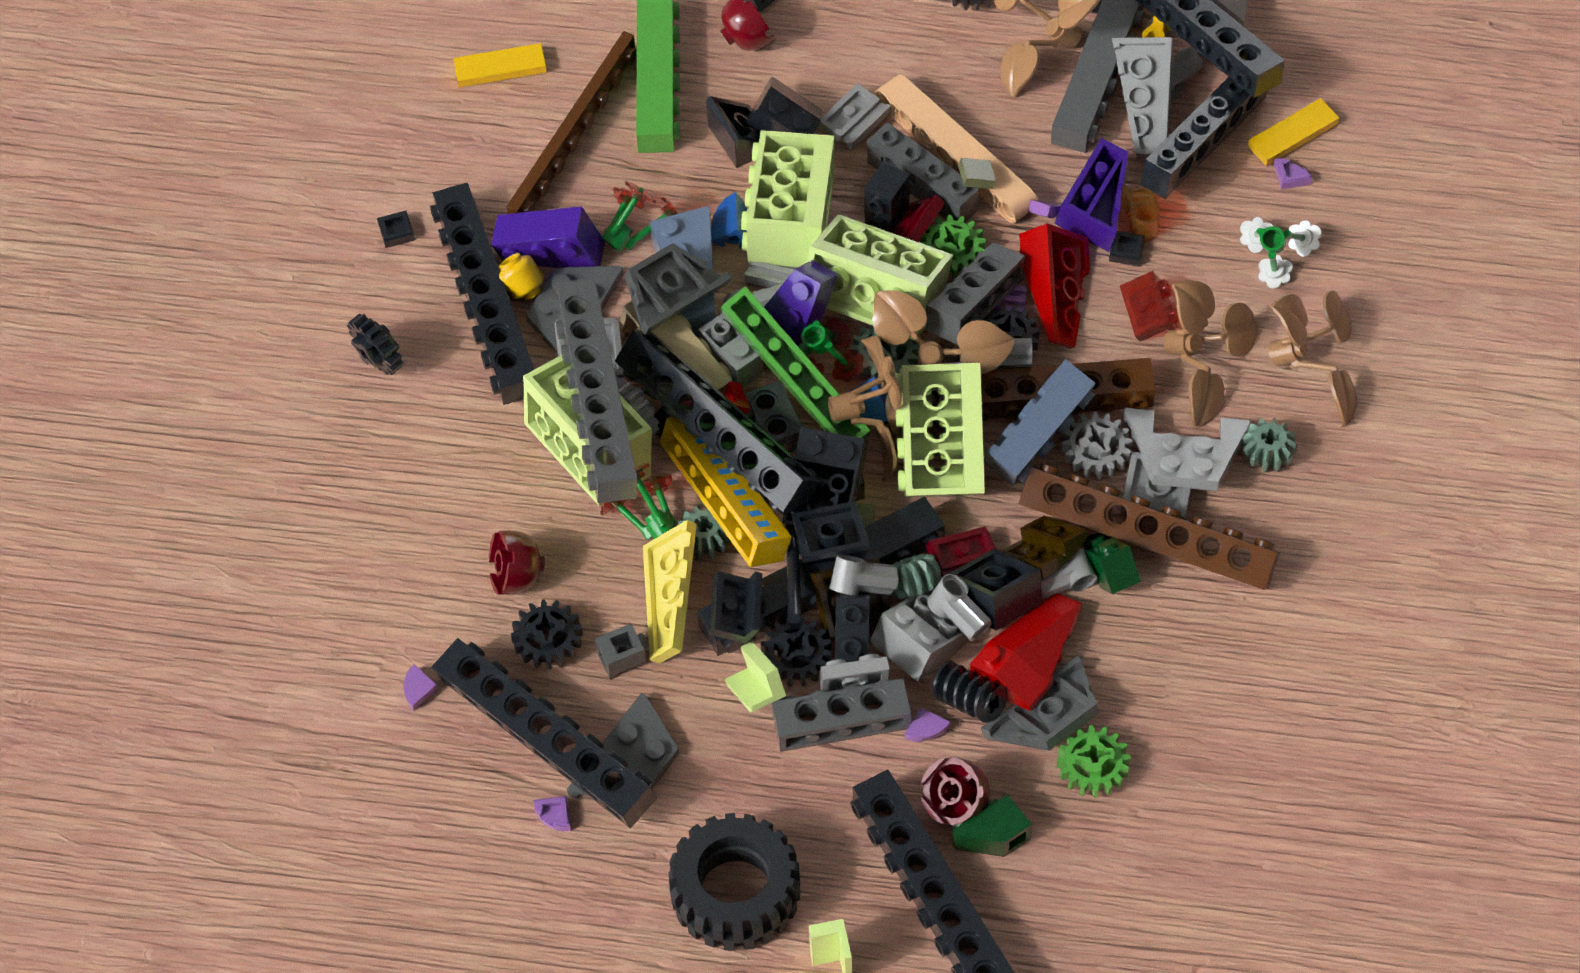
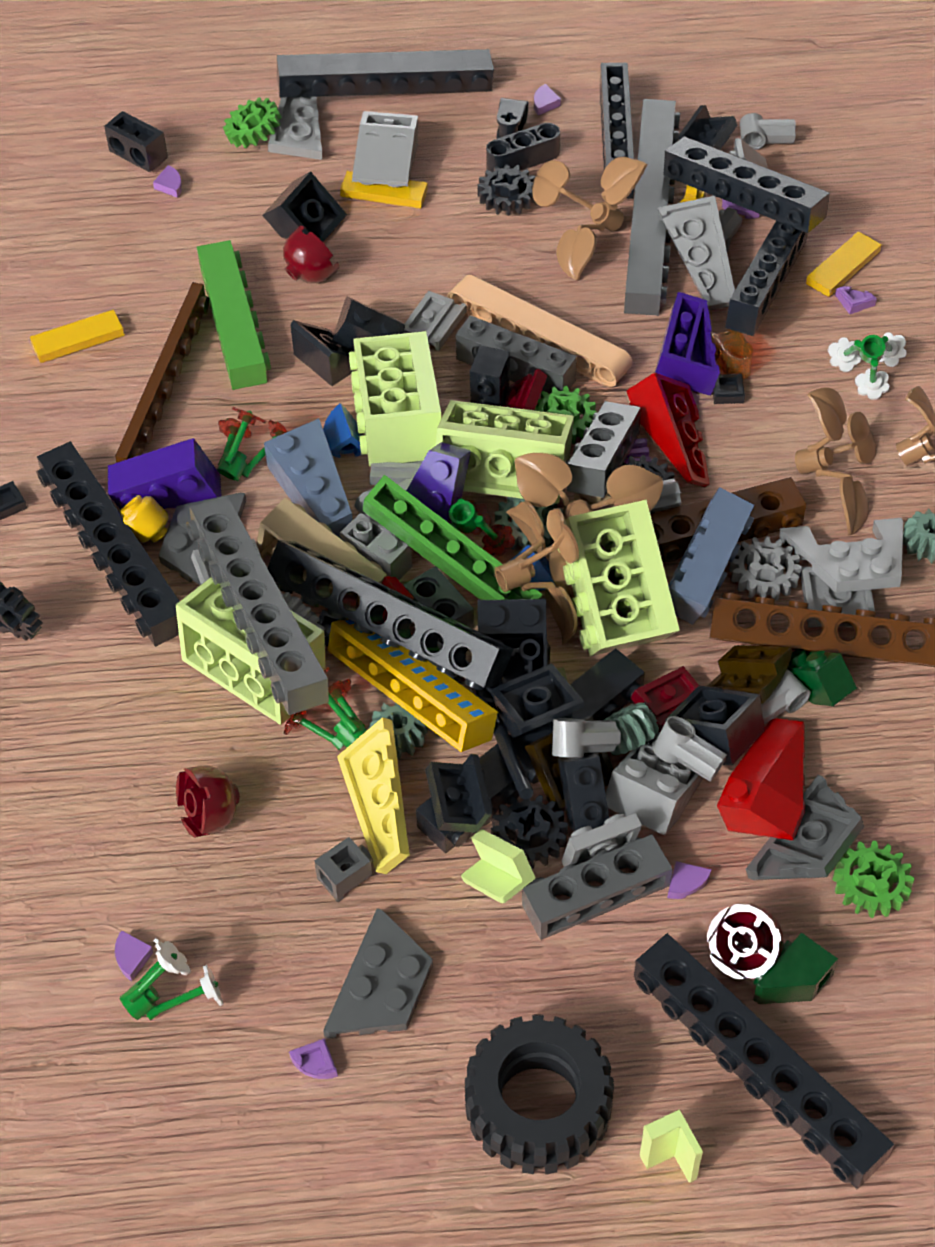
camera: 15 degrees left, 5 degrees down
(418, 726) = (142, 996): none -> green plant
(562, 636) = (243, 876): black gear -> none
(625, 803) = (393, 1034): black brick -> none
(669, 285) = (302, 493): dark grey wing -> none
(969, 692) = (722, 836): black piece -> none
(976, 173) = (570, 343): tile -> none
(1045, 209) = (641, 365): medium lavender tile -> none
(1149, 305) = (768, 434): clear red bracket -> none

